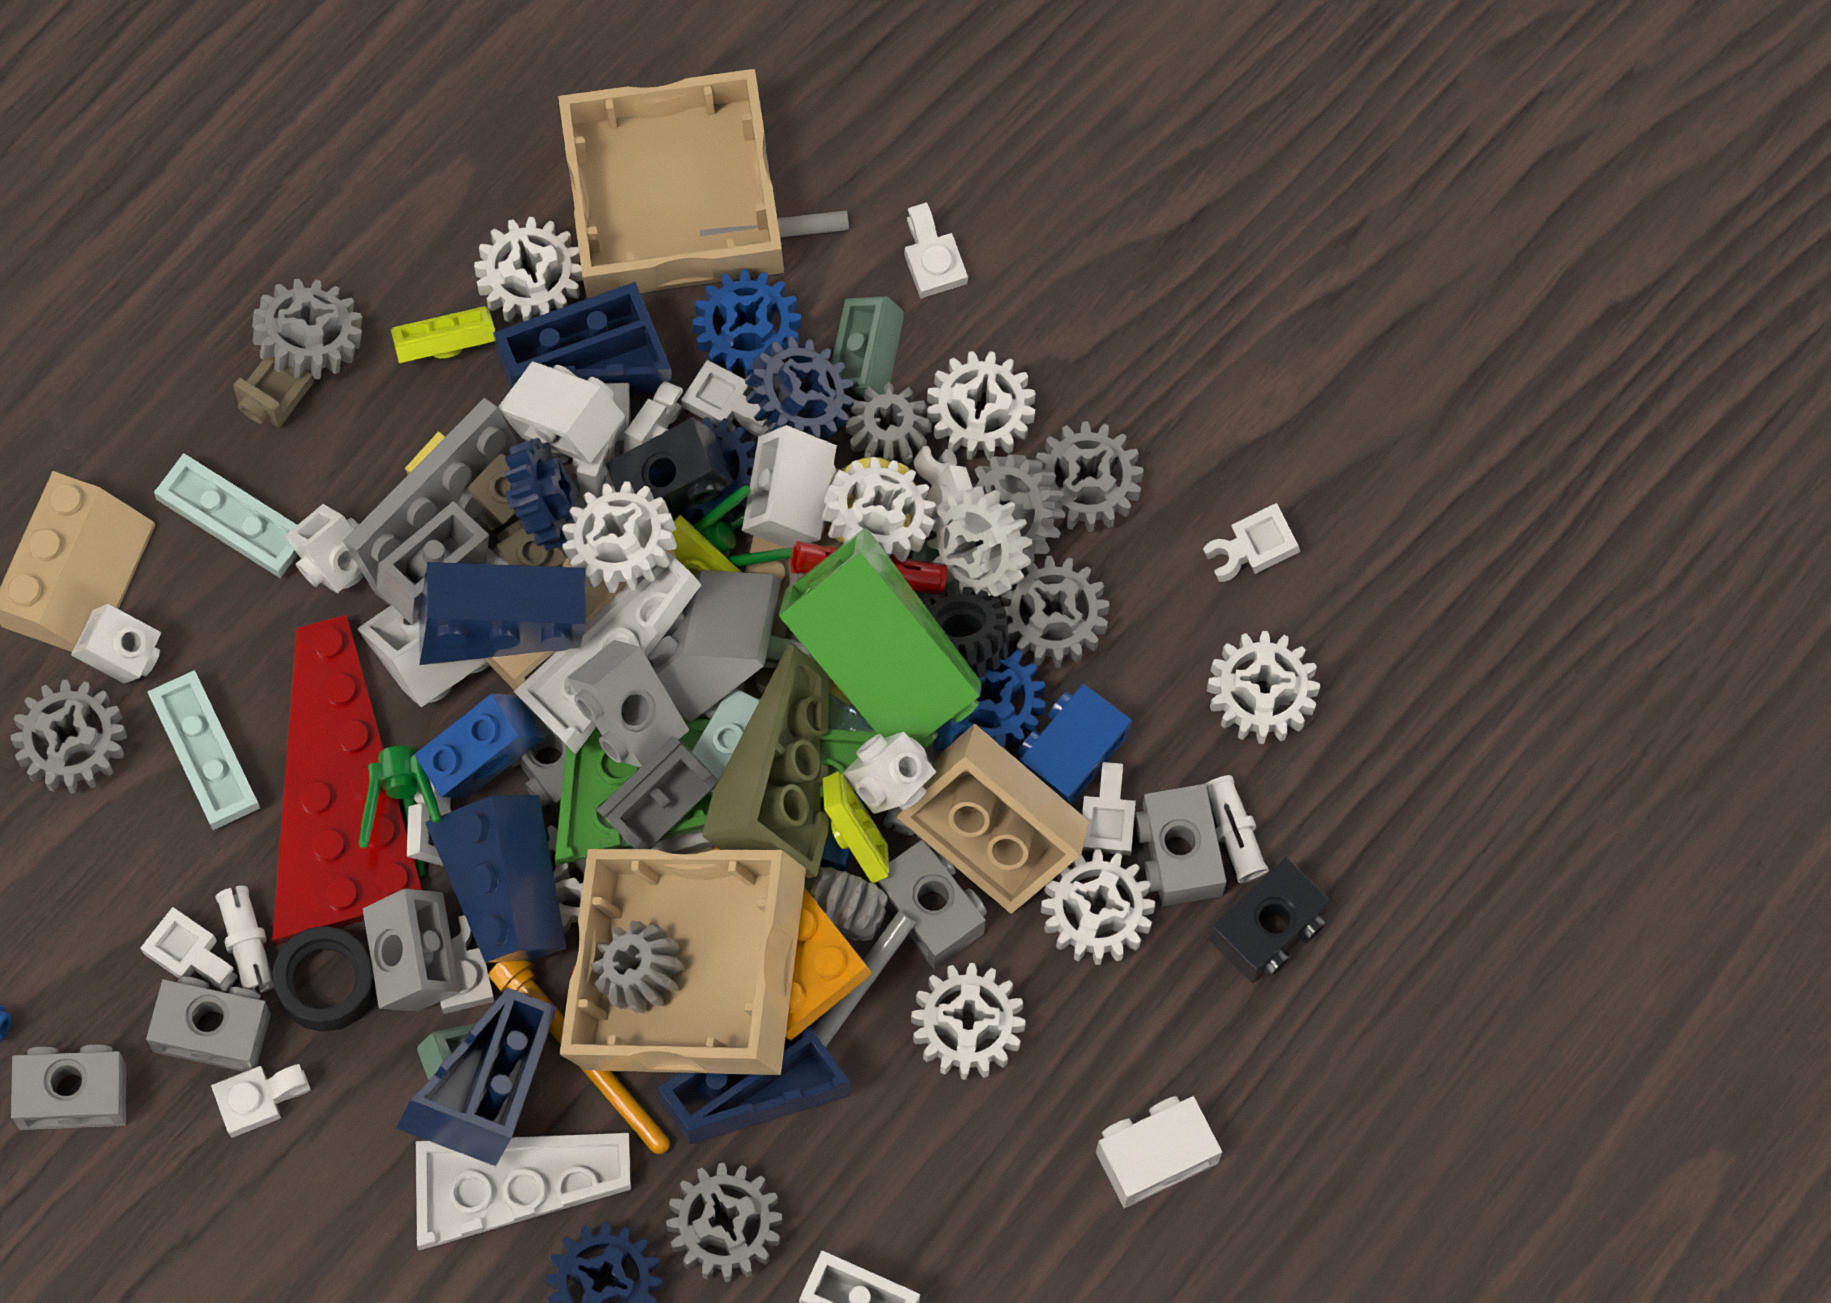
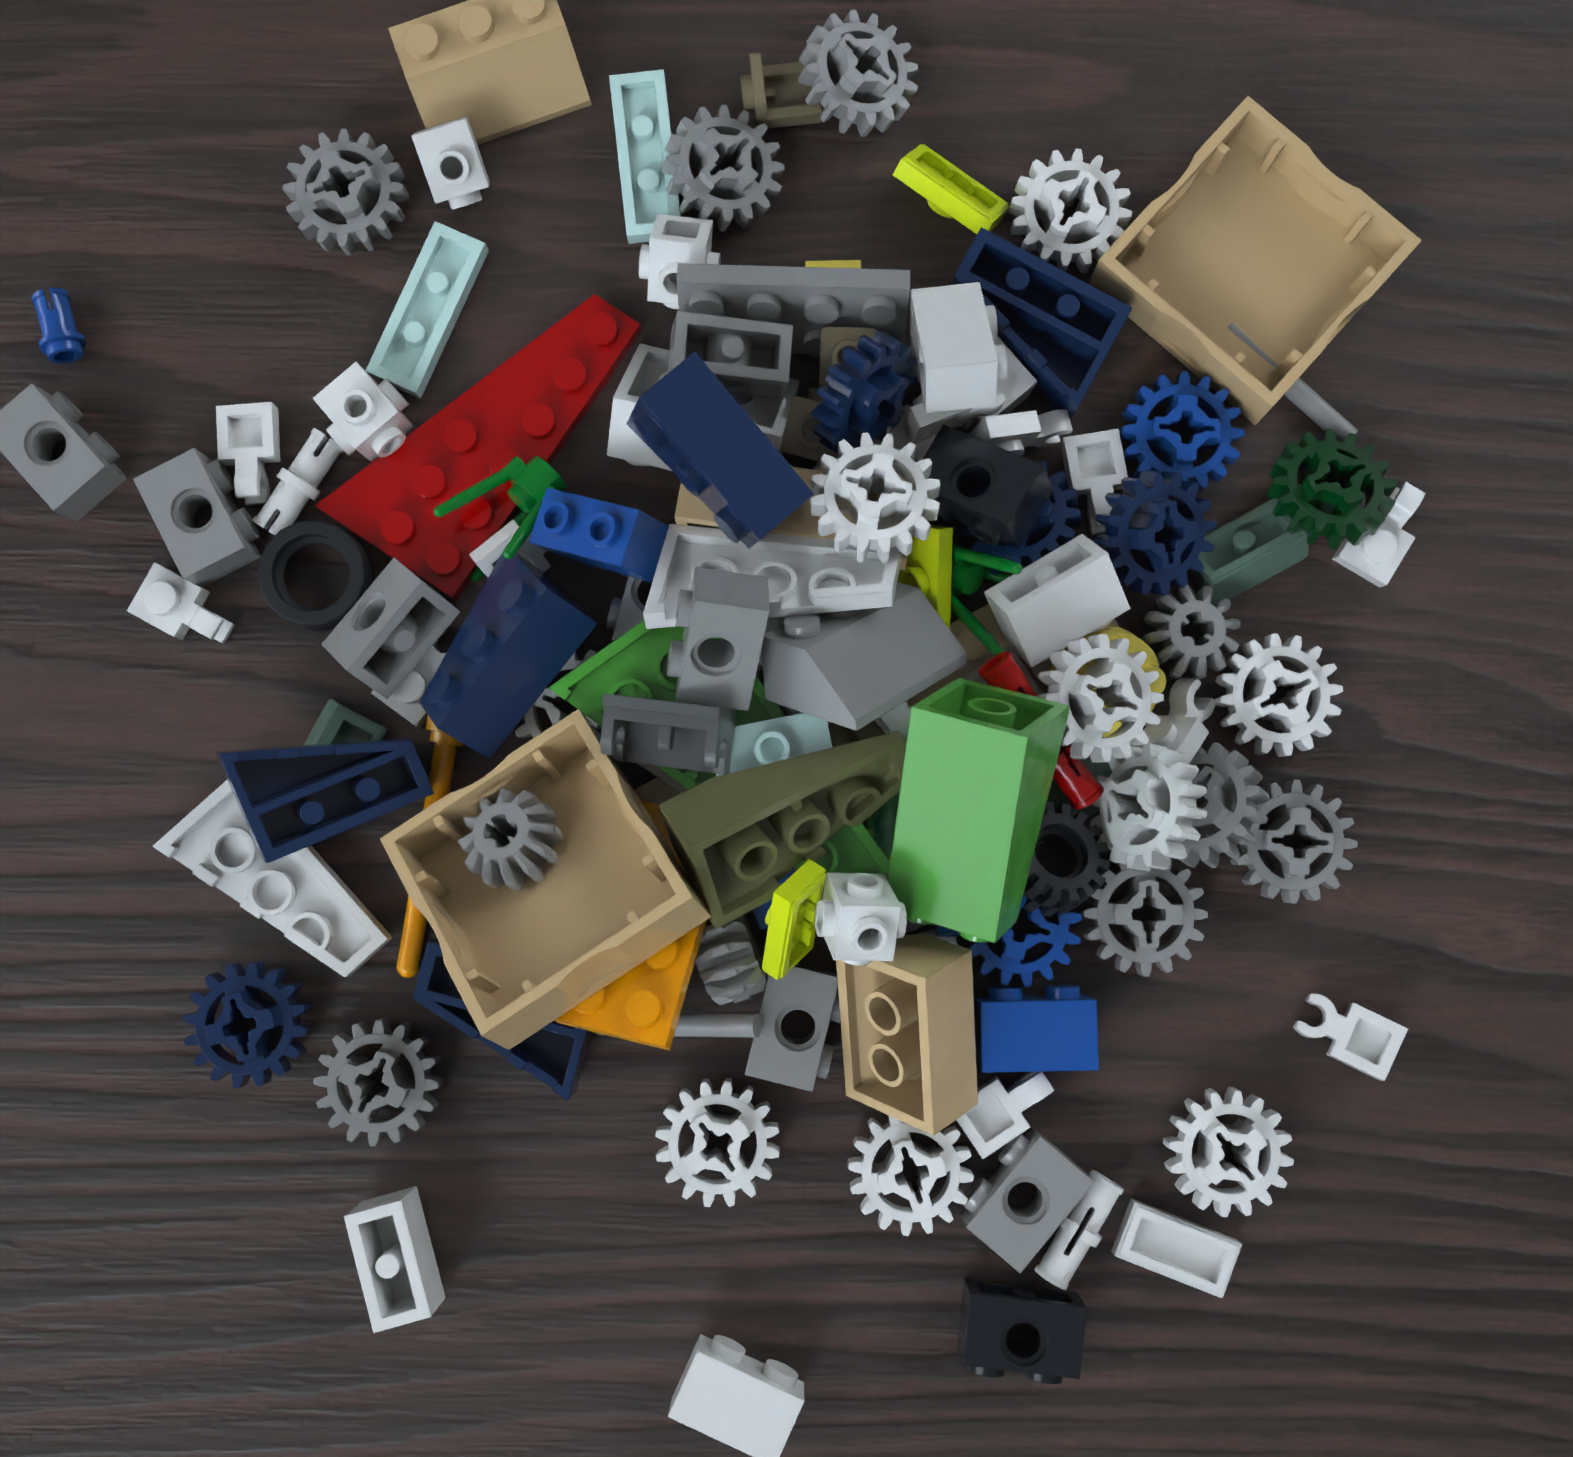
camera: 55 degrees right, 15 degrees up
(243, 847) = (364, 413): none -> white brick
(265, 473) = (716, 144): none -> light grey gear
(870, 258) = (1331, 489): none -> dark green gear
(1304, 778) = (1176, 1248): none -> white tile

